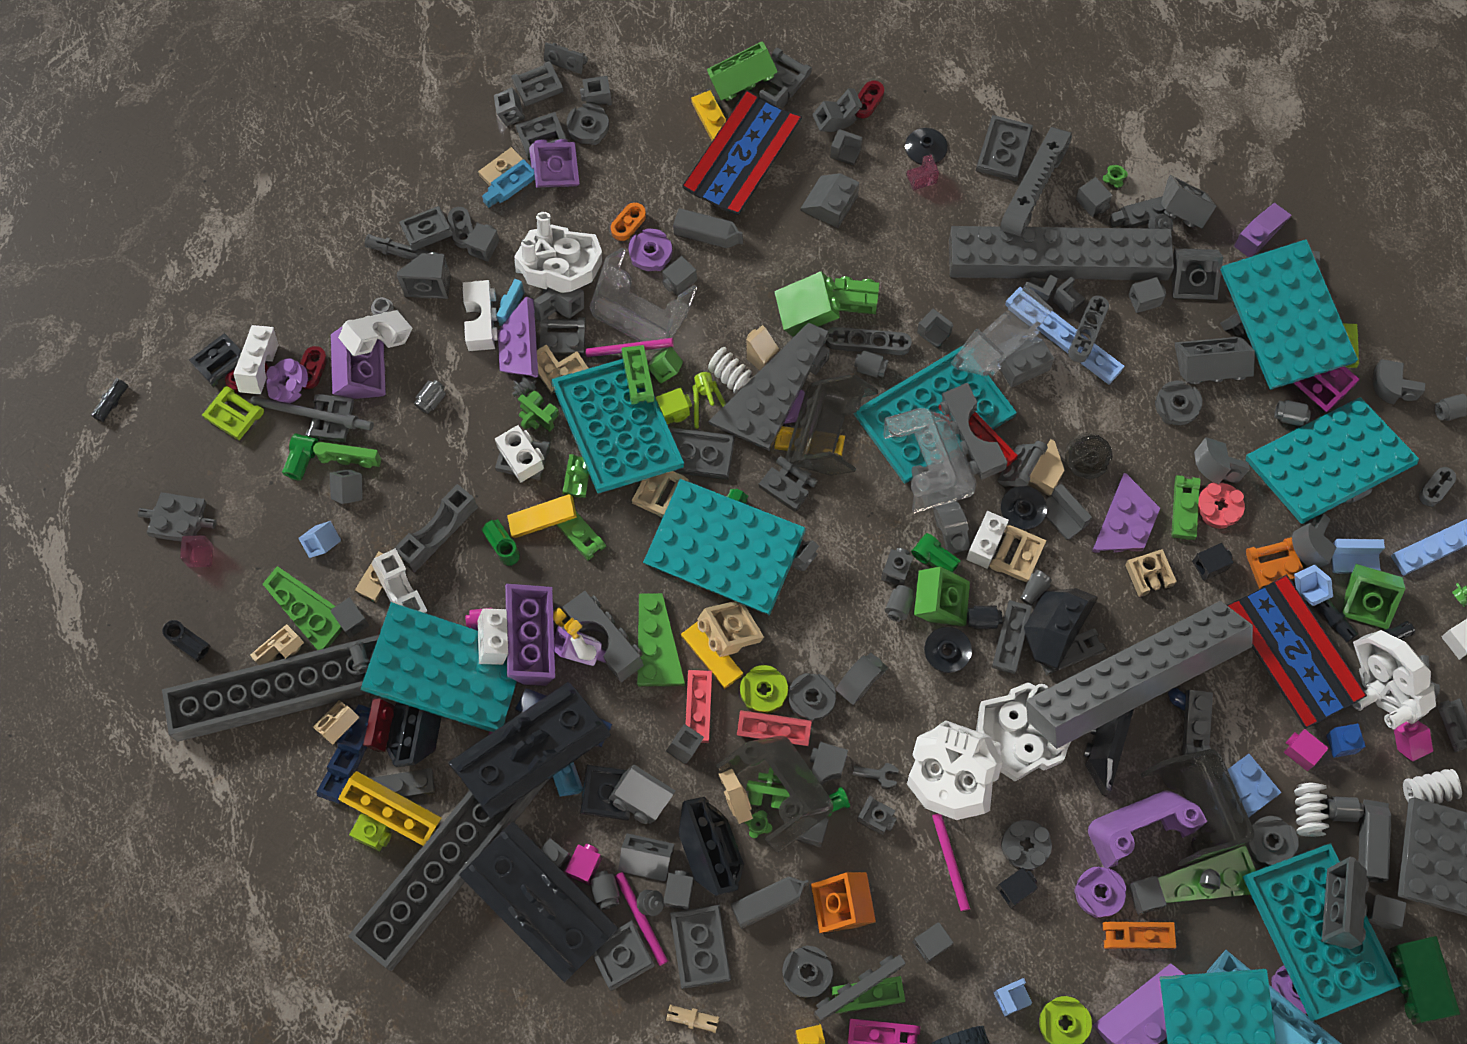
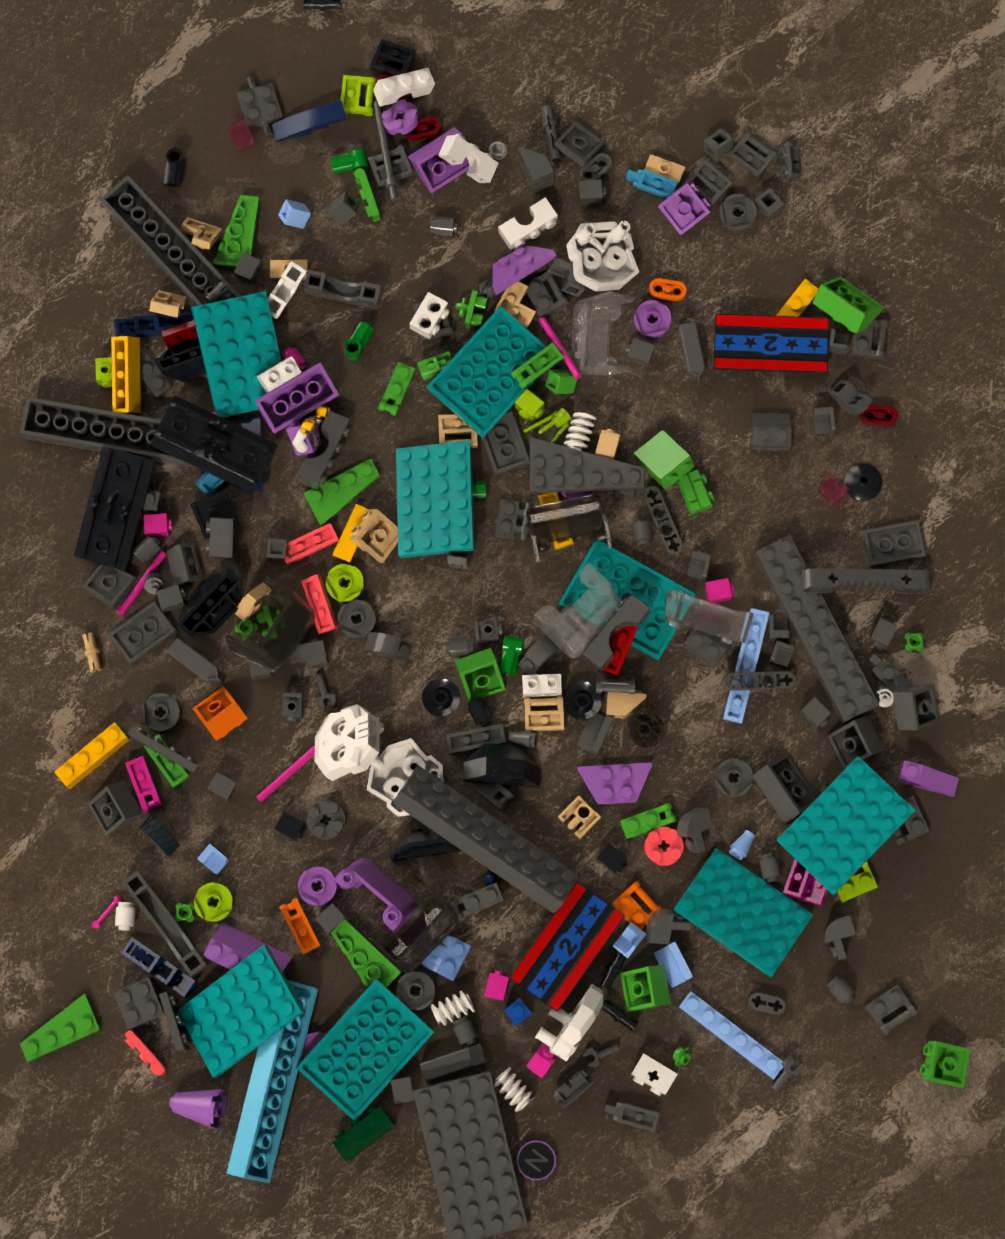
camera: 65 degrees right, 10 degrees up
(228, 474) = (308, 121): none -> dark blue slope
(510, 301) = (551, 240): medium azure plate -> none
(542, 516) = (392, 358): yellow tile -> none
(839, 800) = (289, 674): green bush -> none
(972, 318) = (719, 590): none -> dark pink brick
(1210, 879) = (362, 956): dark grey hinge -> none
(1256, 429) = (741, 846): none -> light blue cone
(1345, 904) = (388, 1057): dark grey slope -> none

